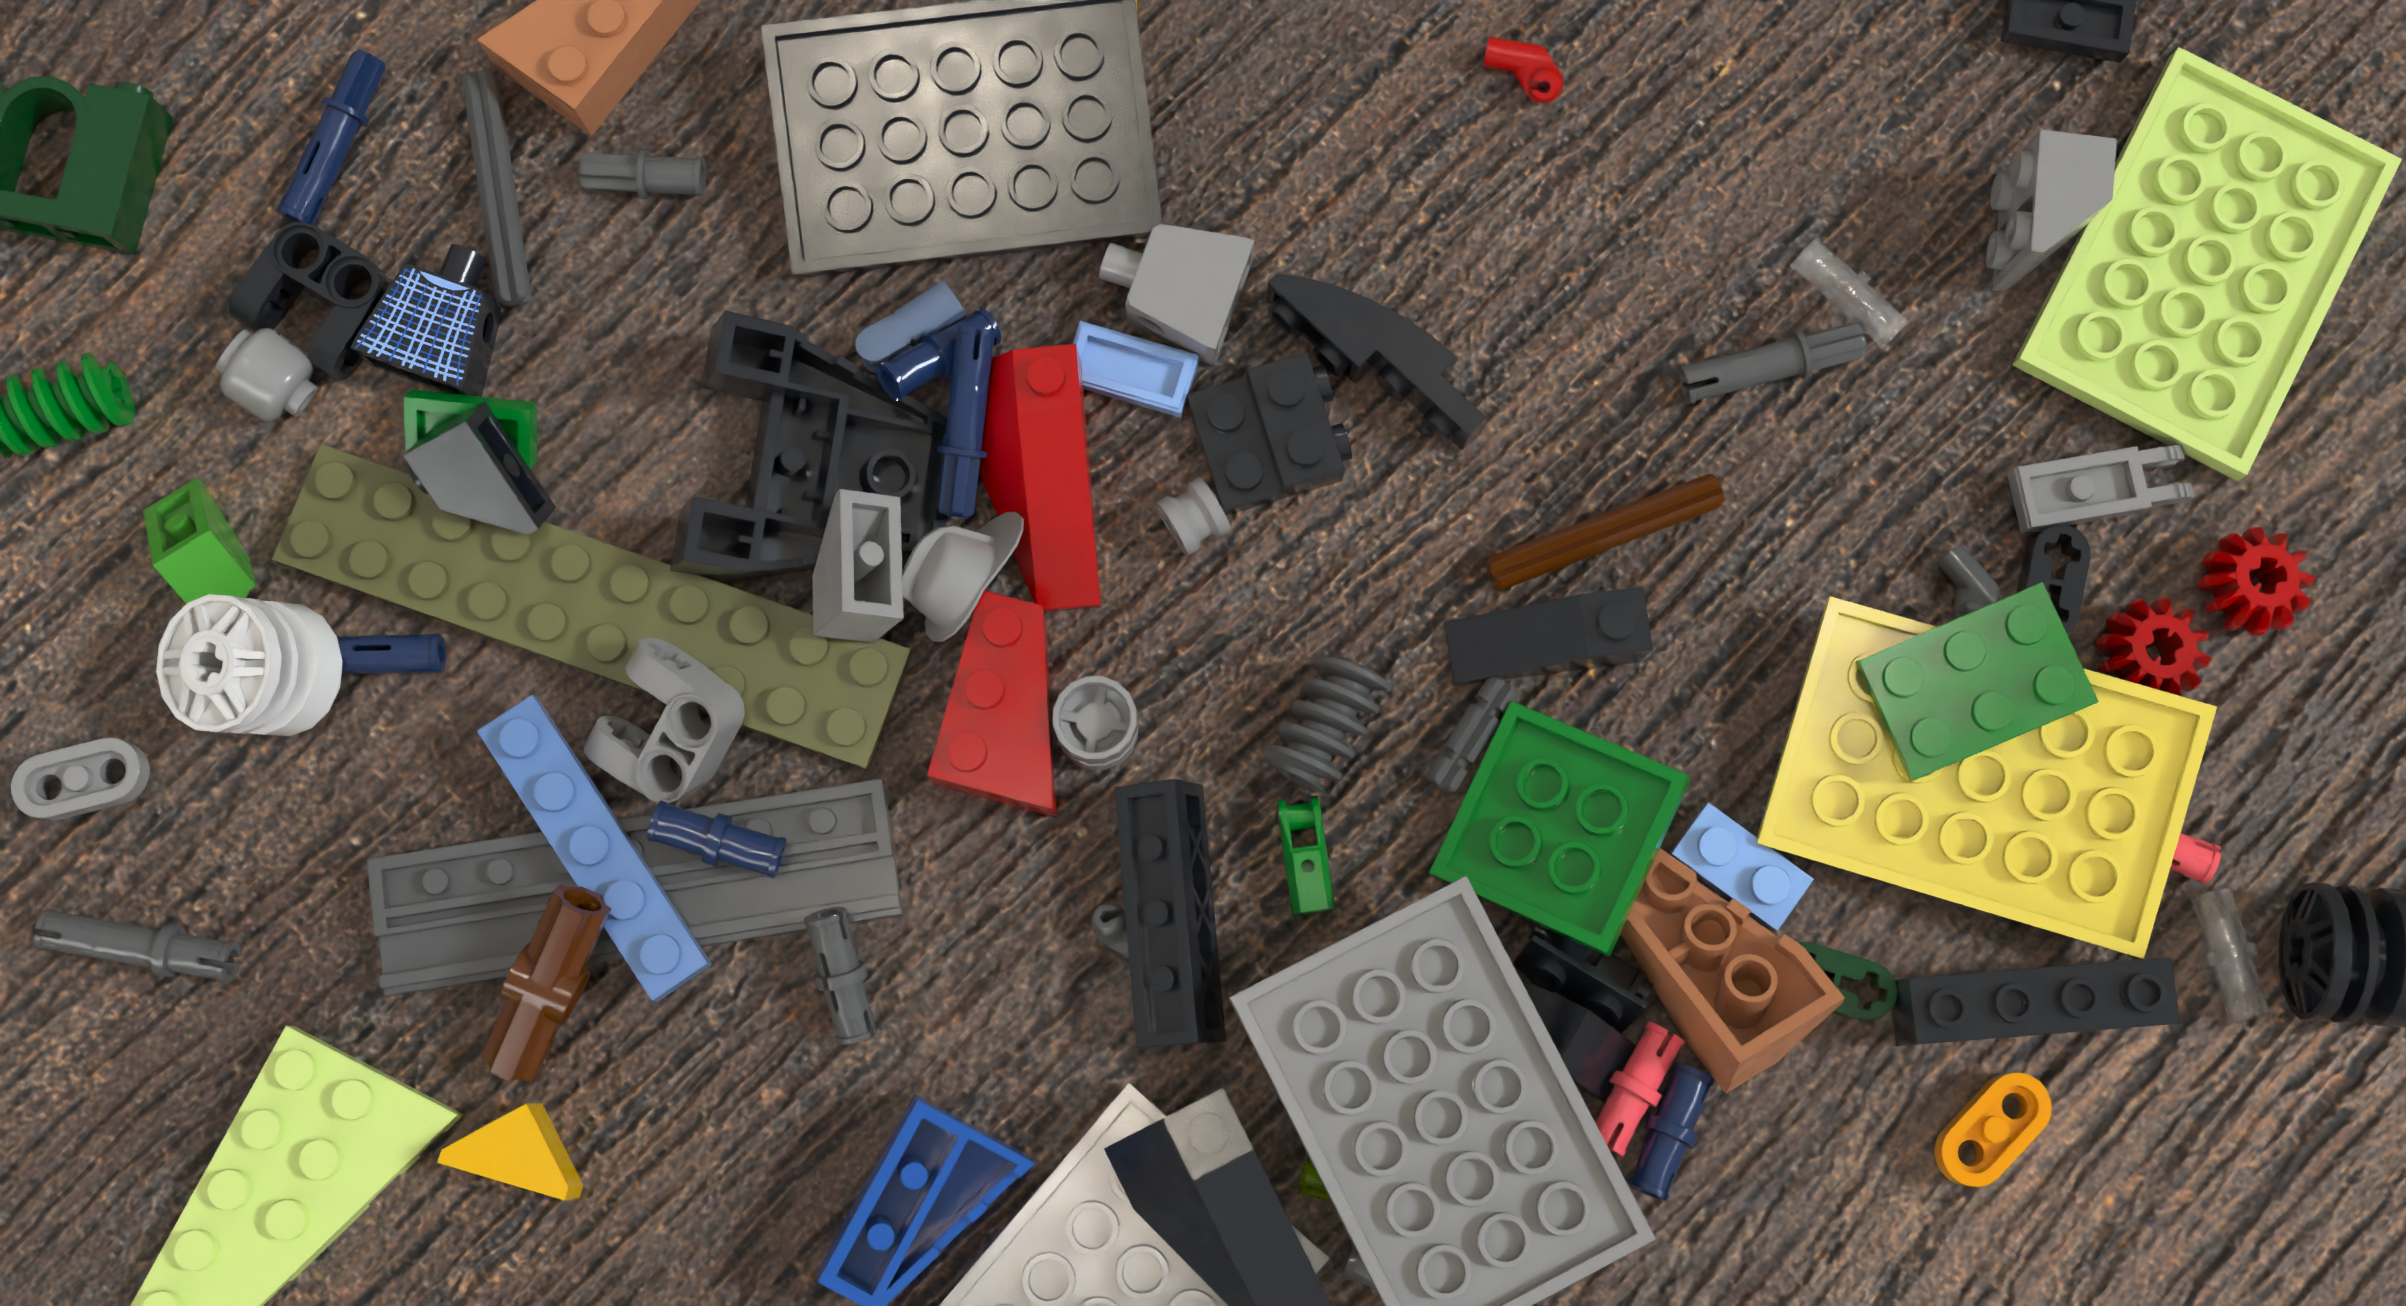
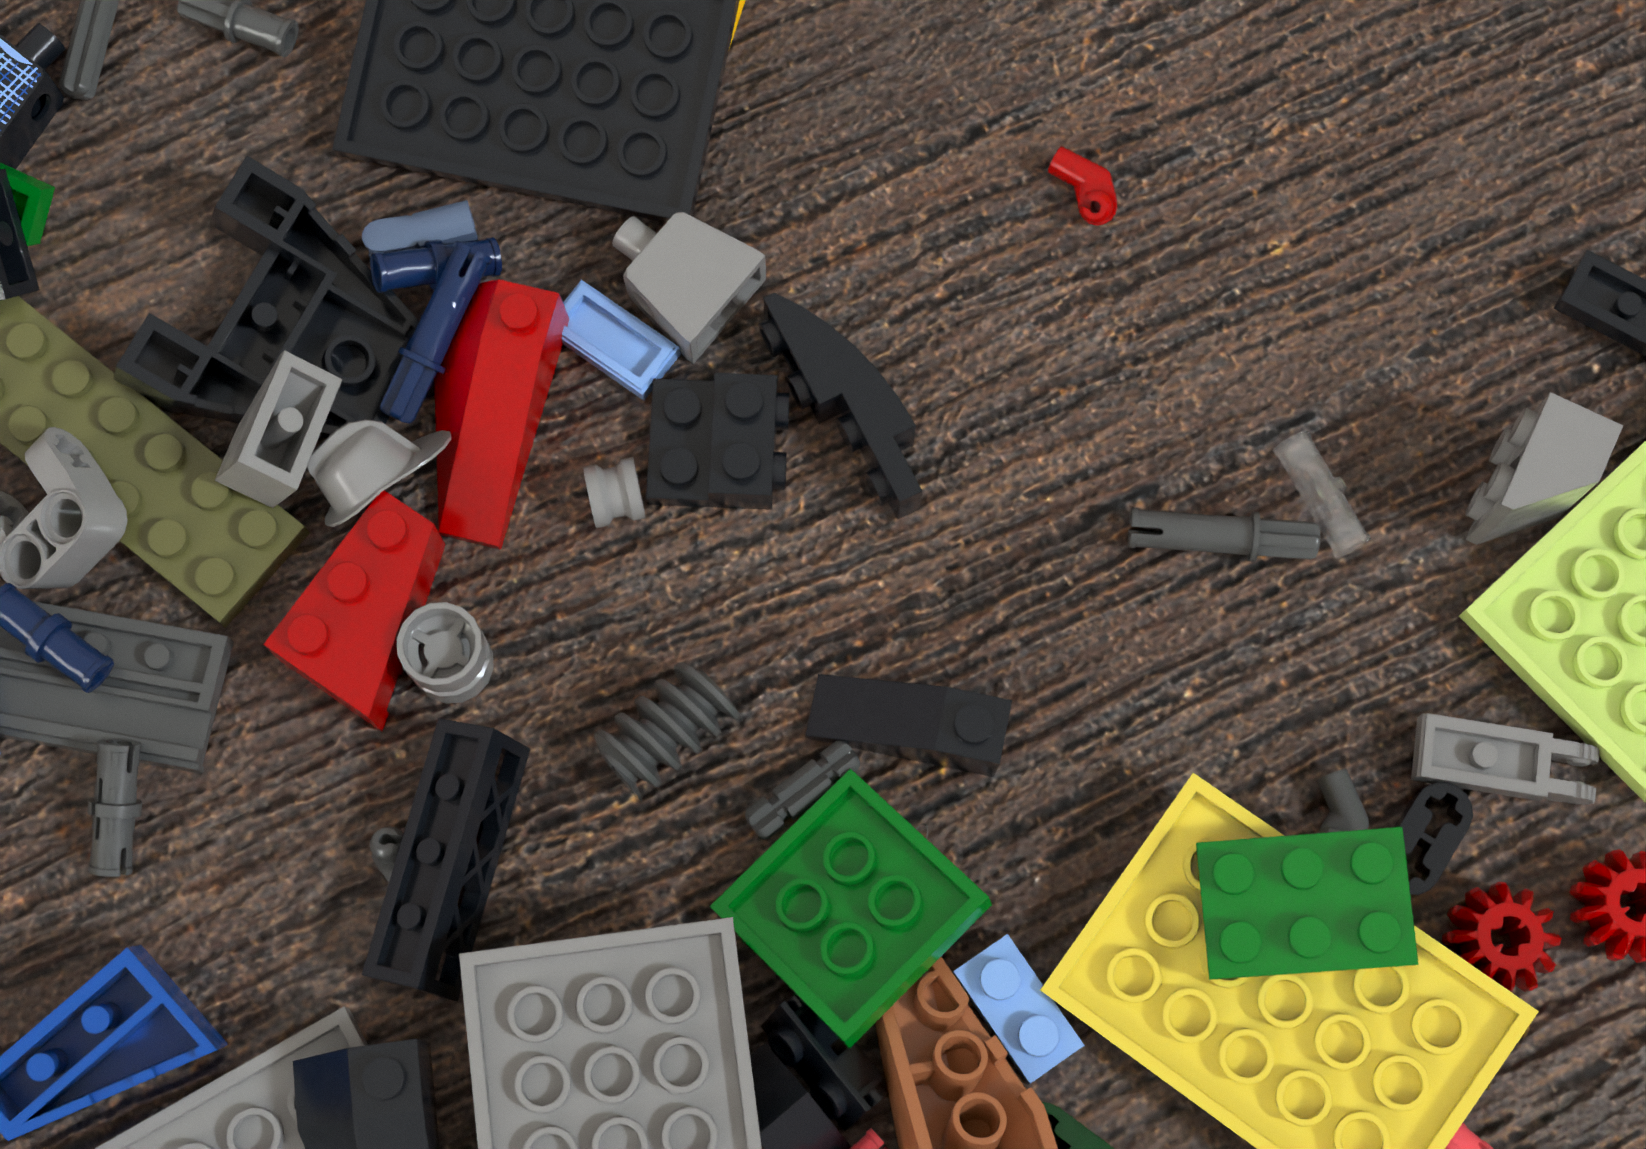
camera: 20 degrees right, 5 degrees down
(1306, 866) = (598, 859): green bar -> none
(1605, 531) = (1003, 640): reddish brown axle -> none

